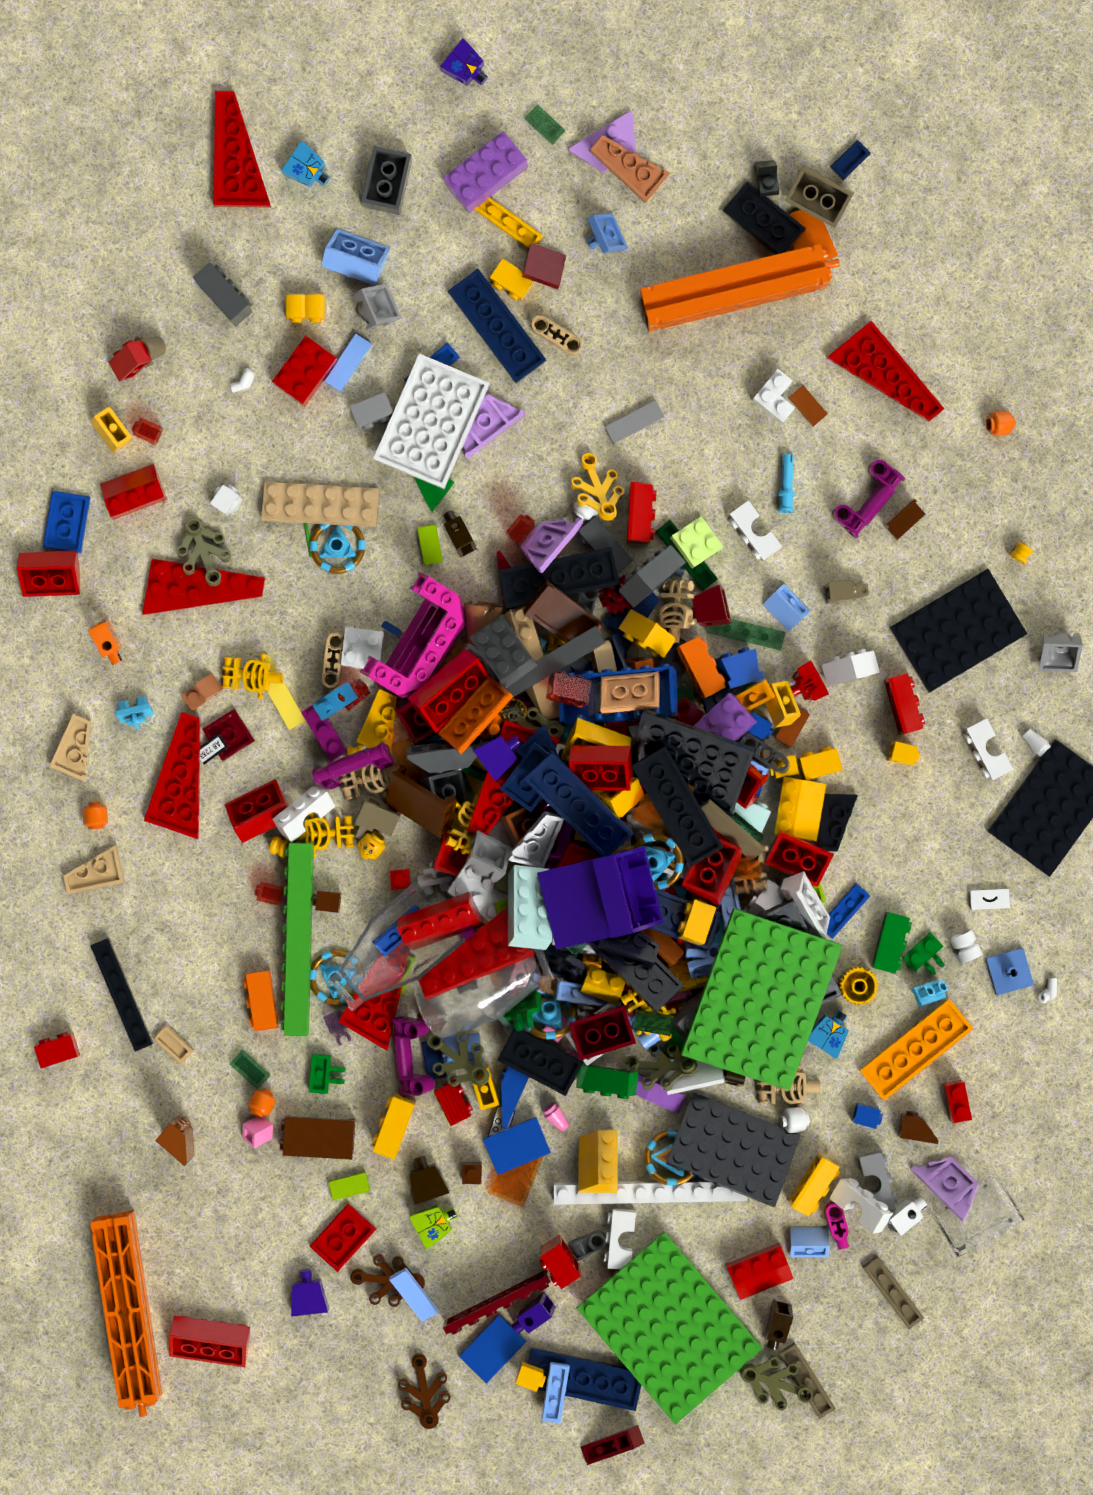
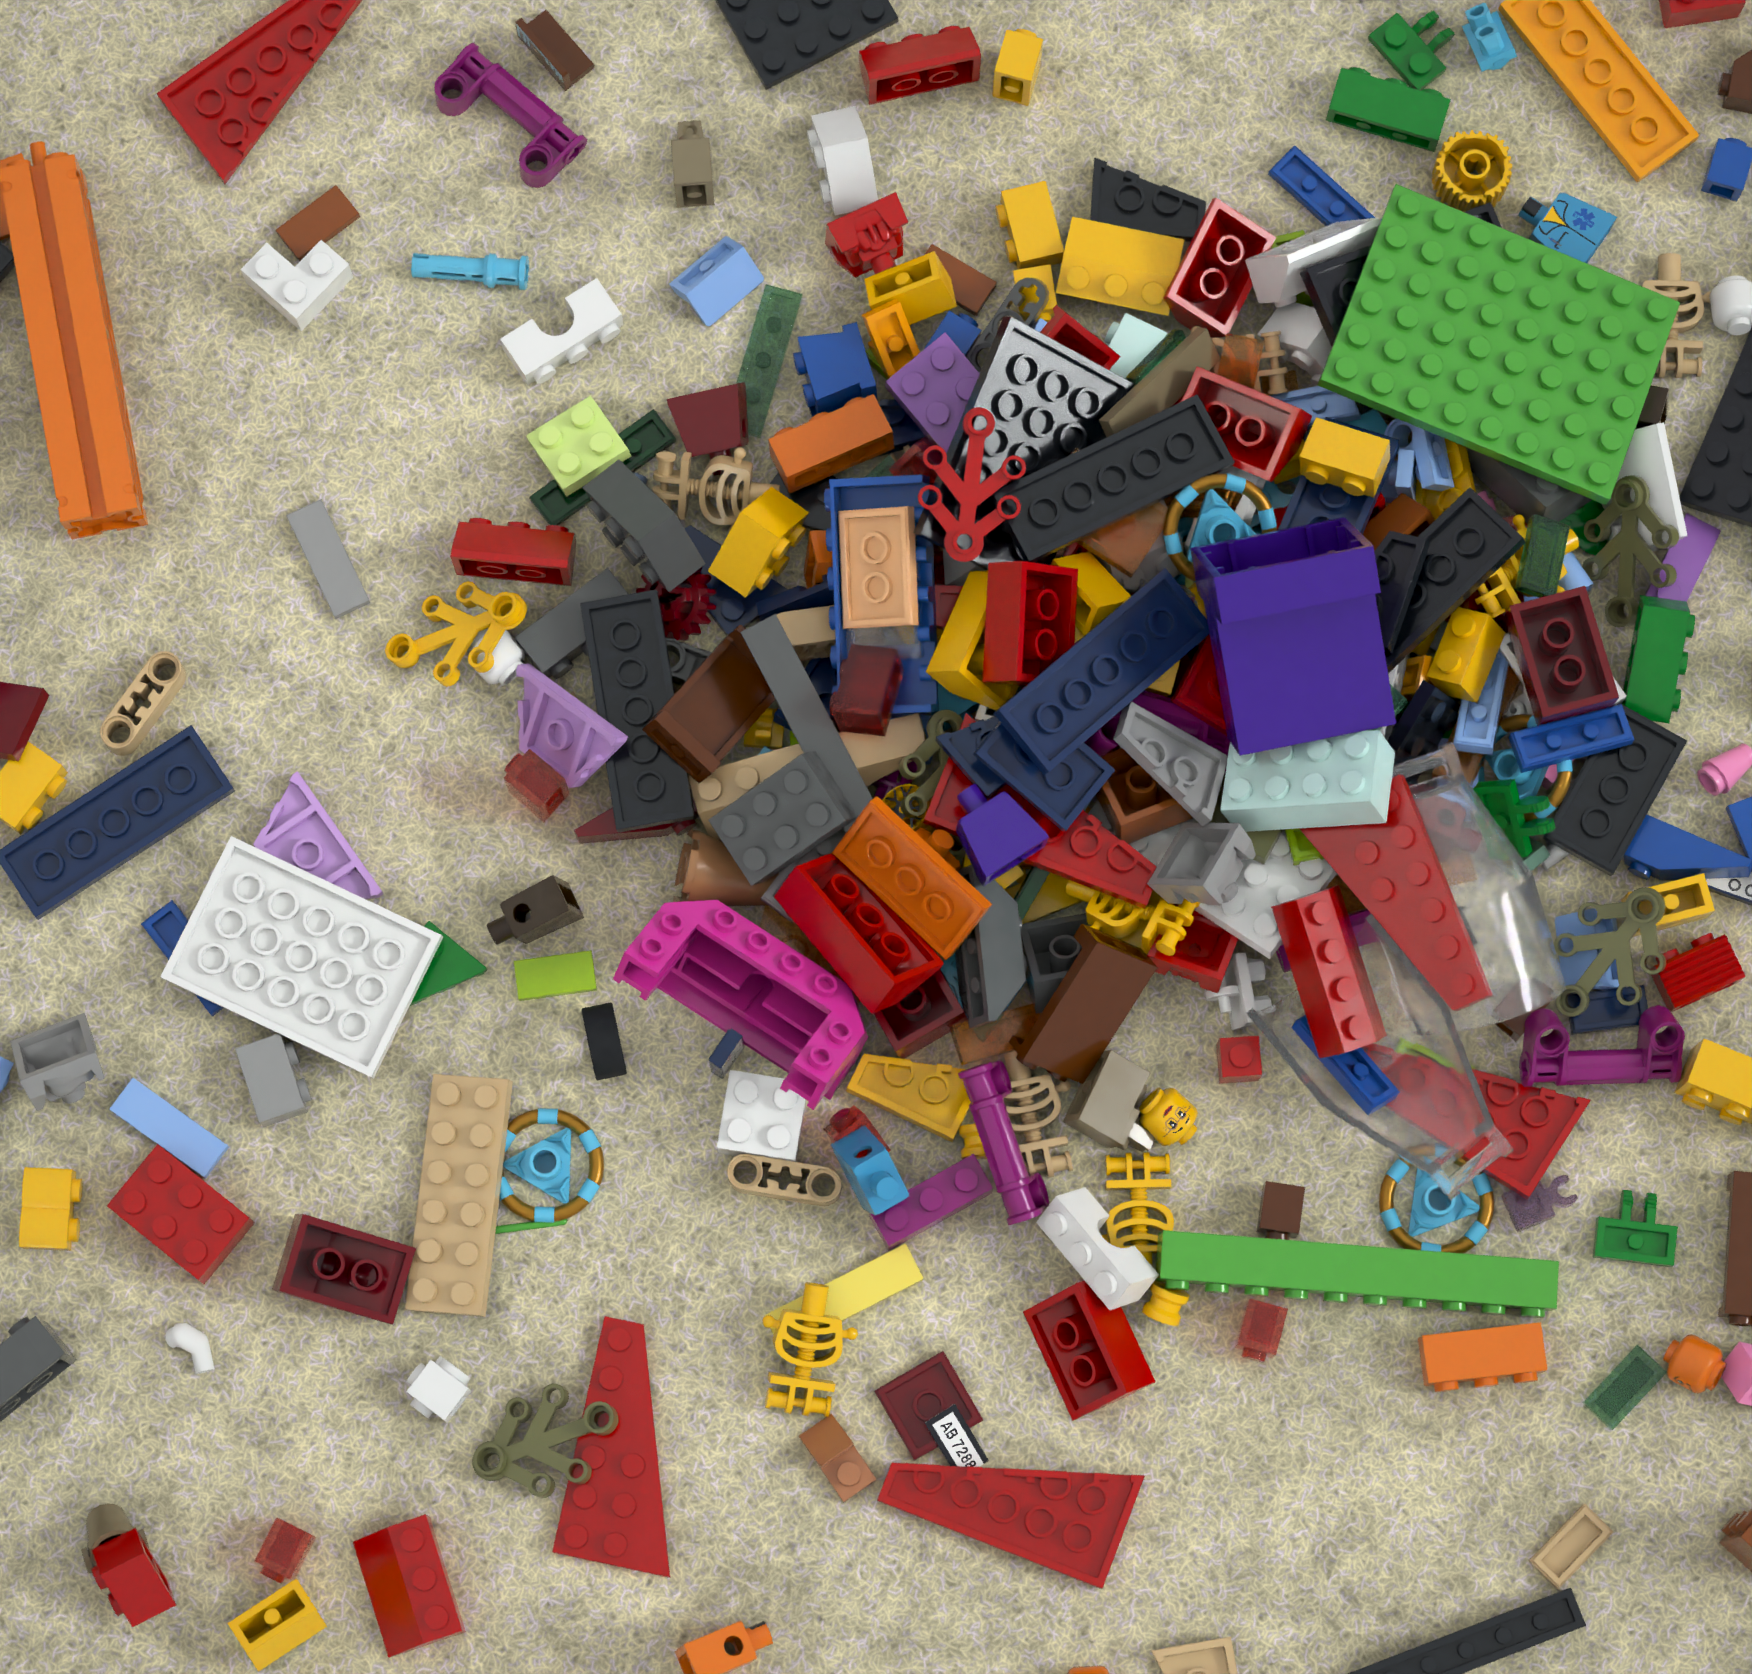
camera: 90 degrees left, 10 degrees down
(136, 714) = (879, 1597): medium azure hips -> none
(281, 450) = (343, 1268): none -> dark red slope
(396, 570) = (604, 1041): none -> black tyre
(562, 1038) = (1571, 738): none -> blue tile
(663, 735) = (970, 491): none -> red plant

